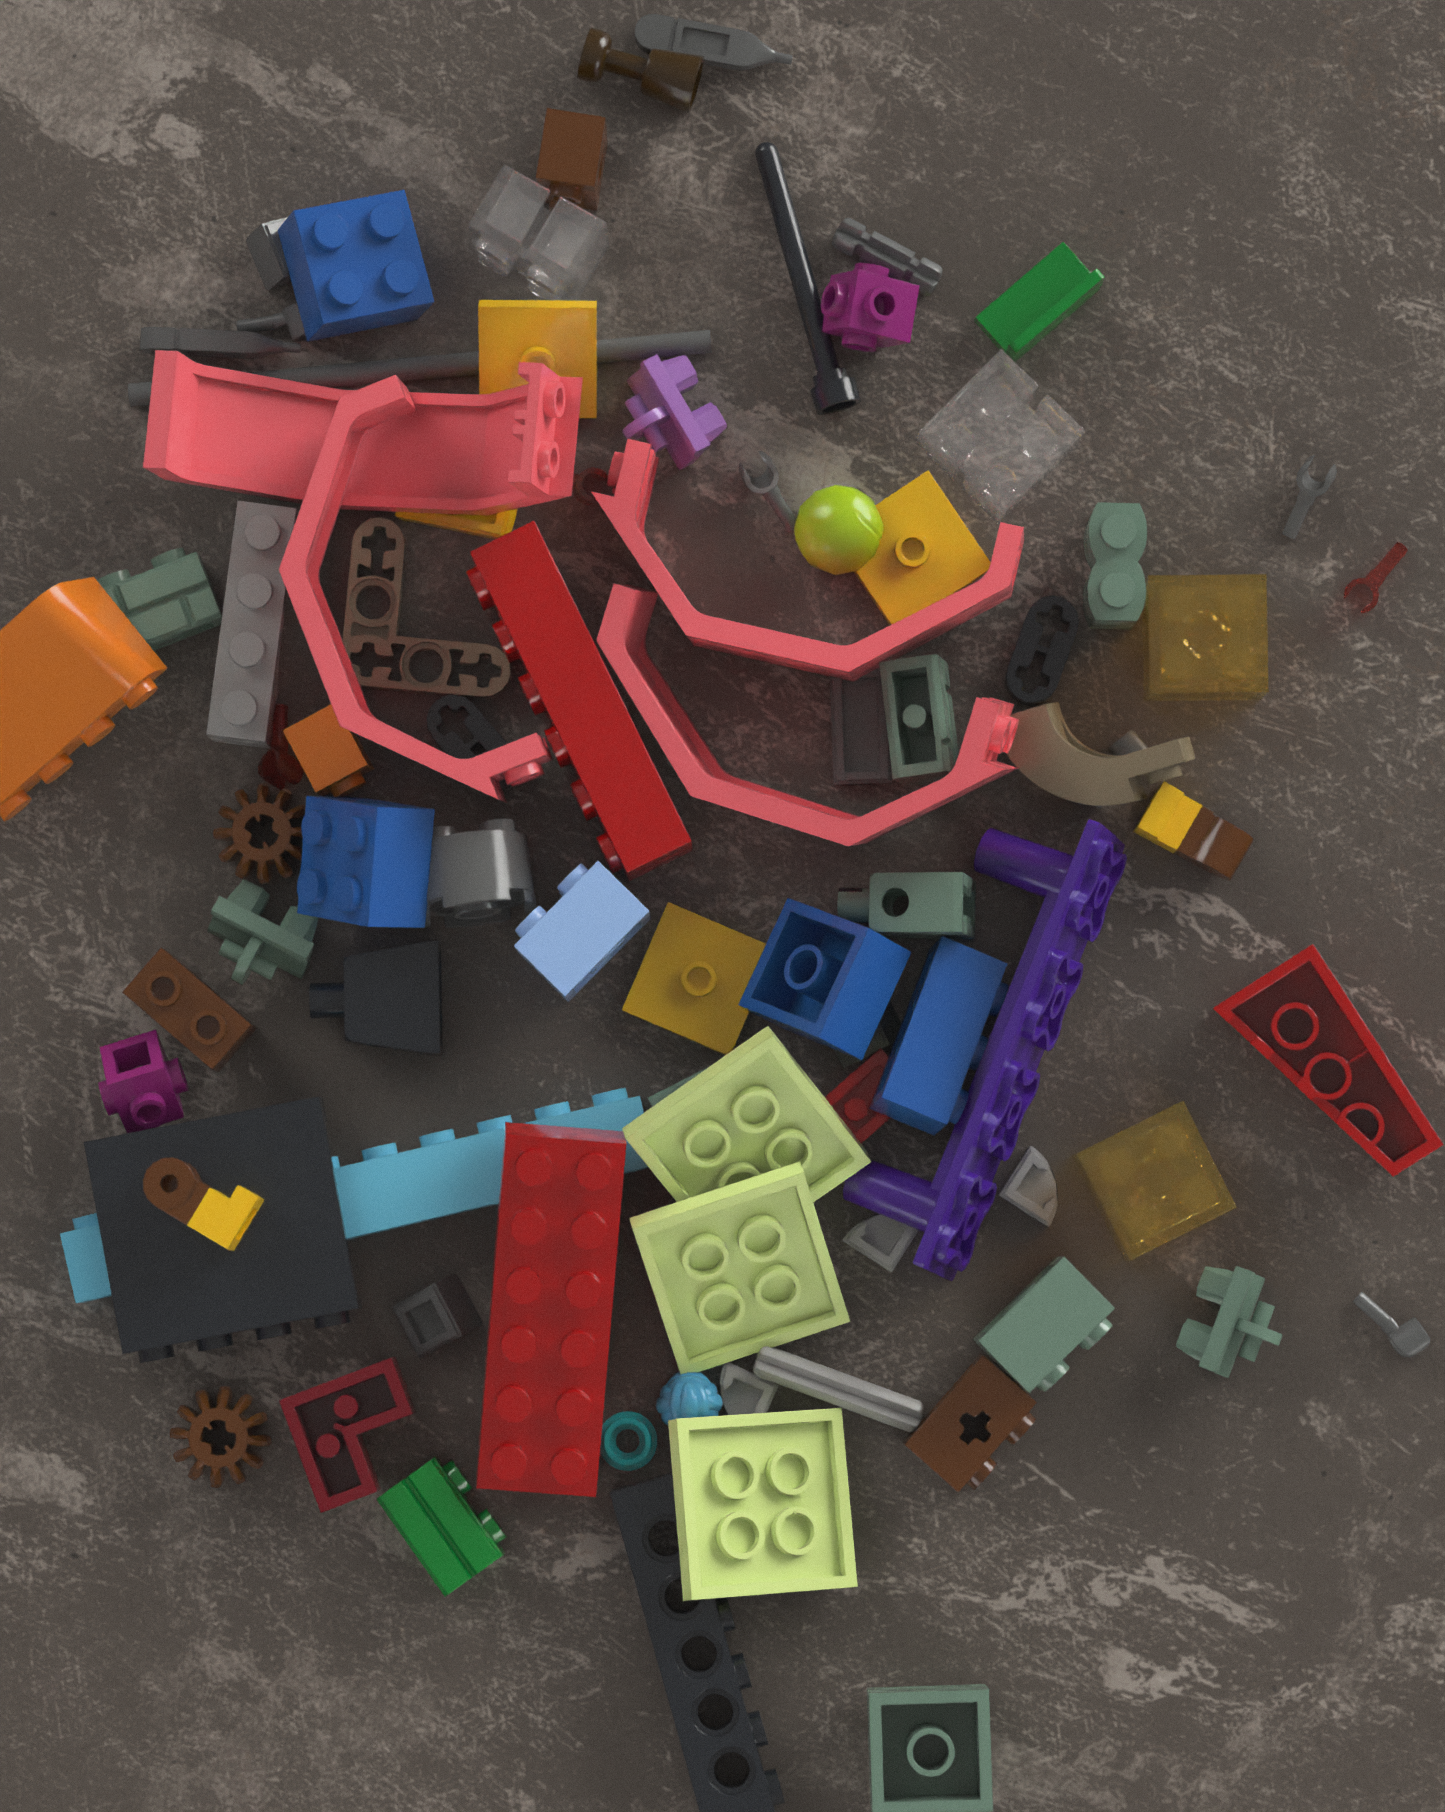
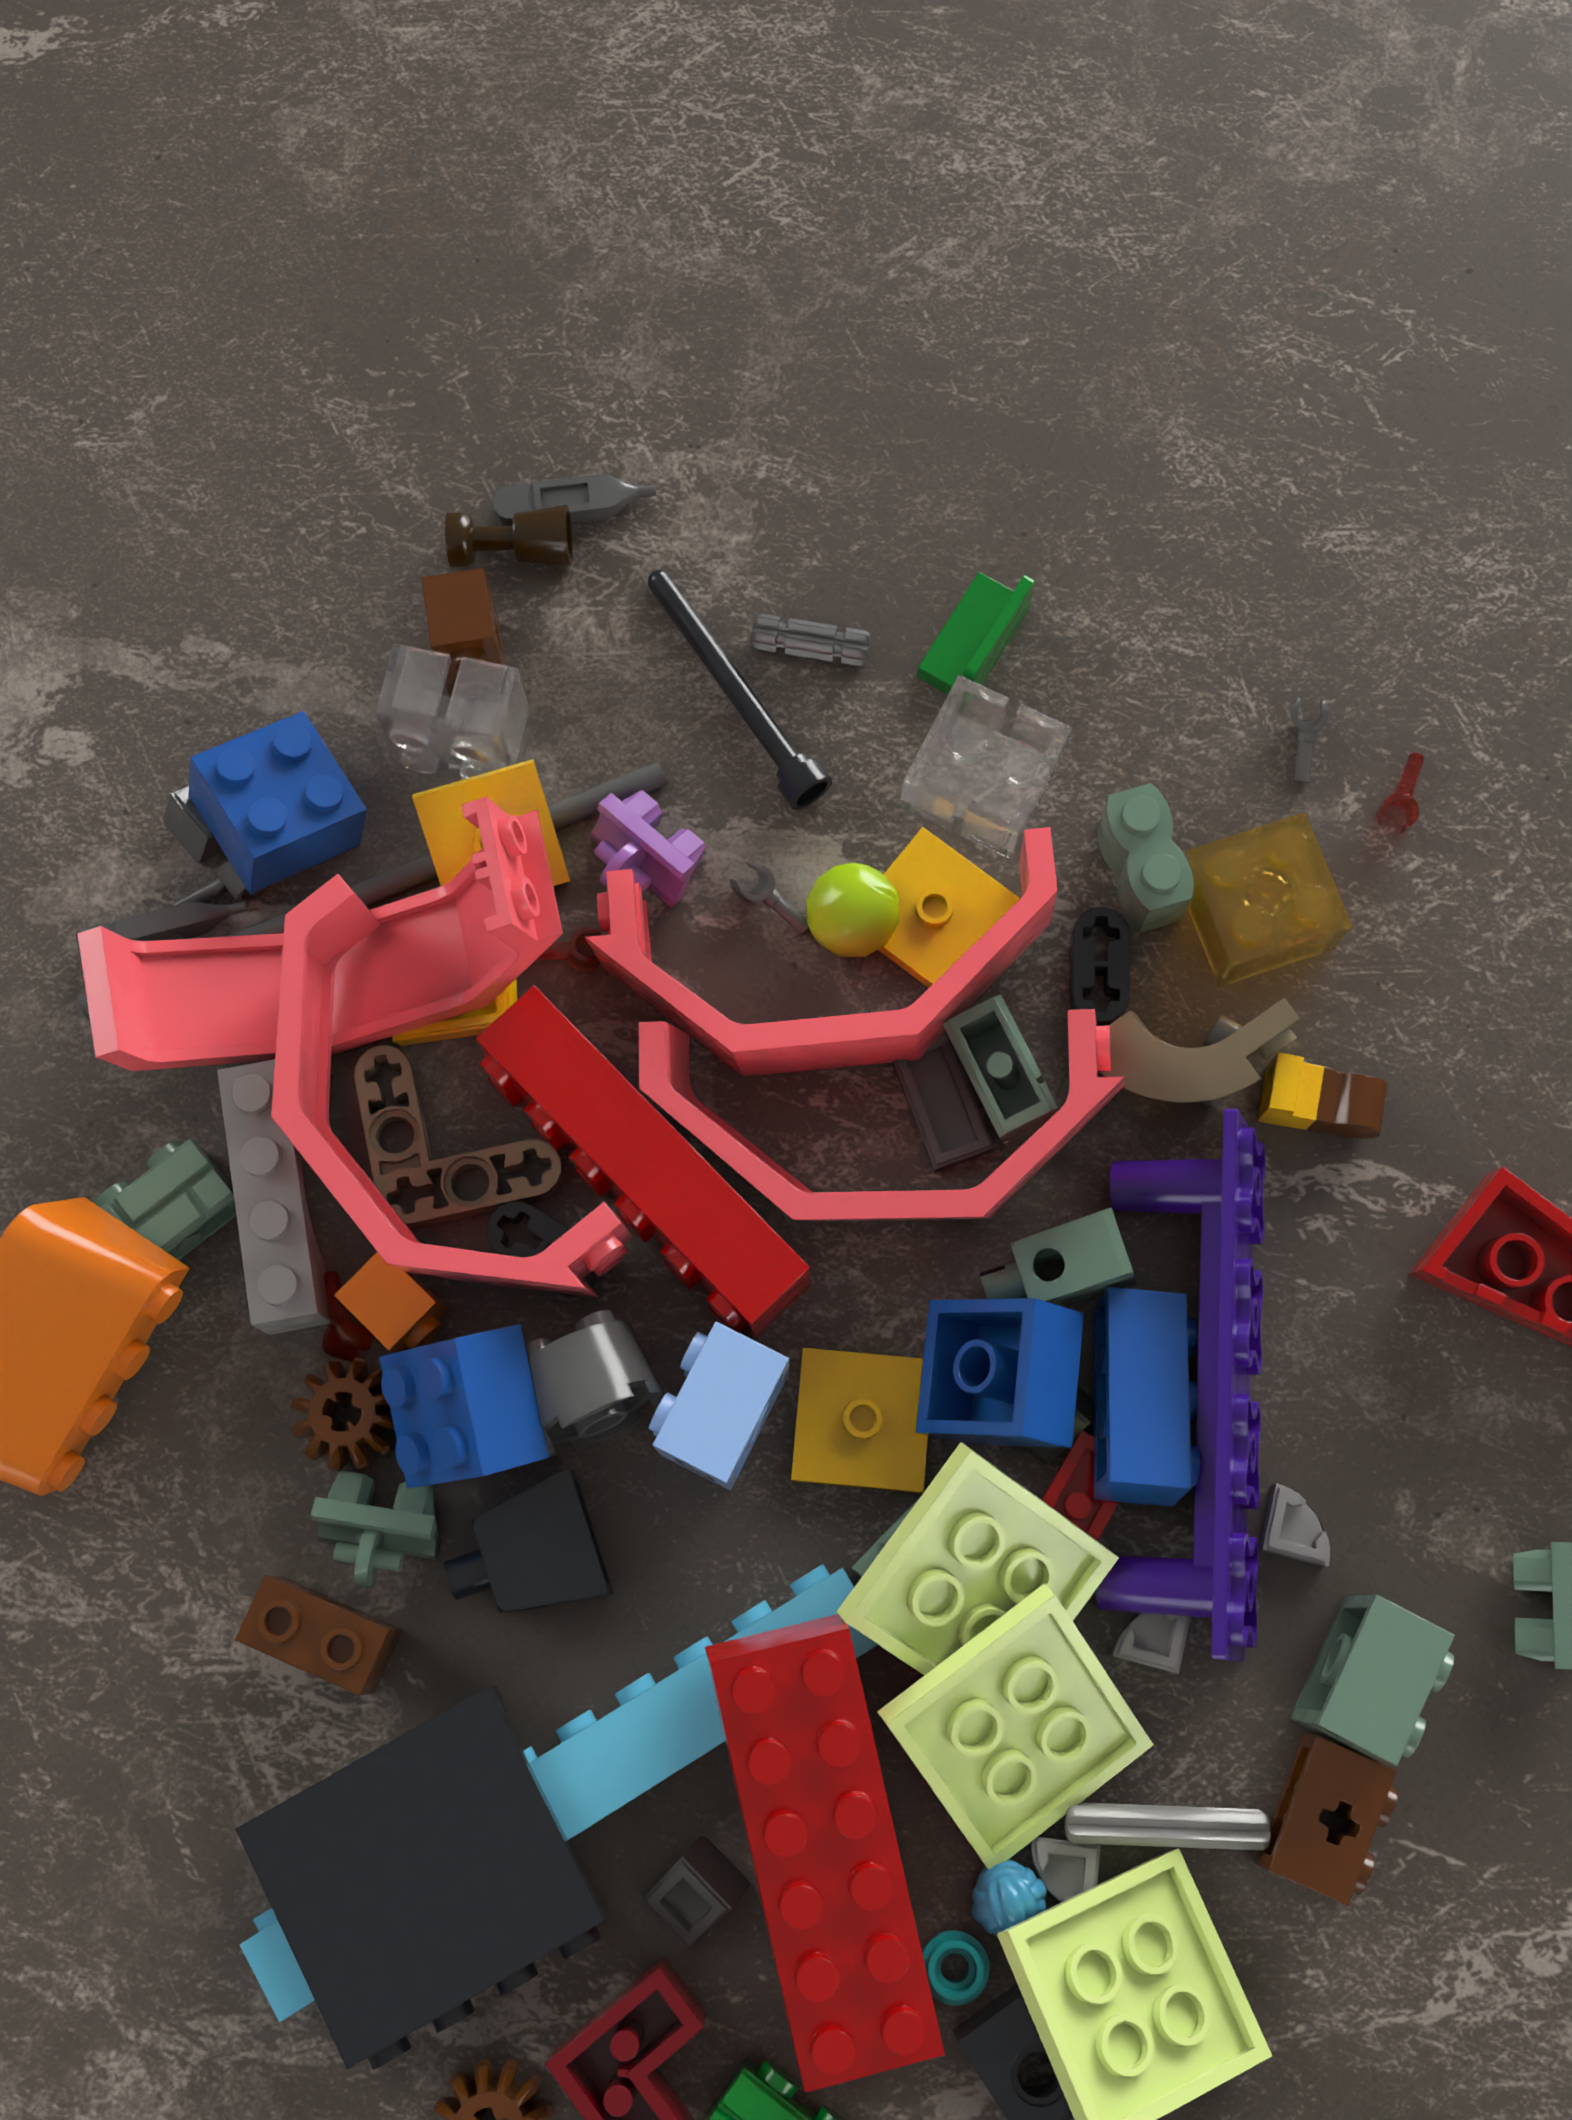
camera: 15 degrees left, 10 degrees down
(146, 1094) = (287, 1735): magenta brick -> none
(179, 1192) = (364, 1857): leg -> none
(869, 308) = (811, 686): magenta brick -> none
(1154, 1181) = (1425, 1479): clear yellow brick -> none

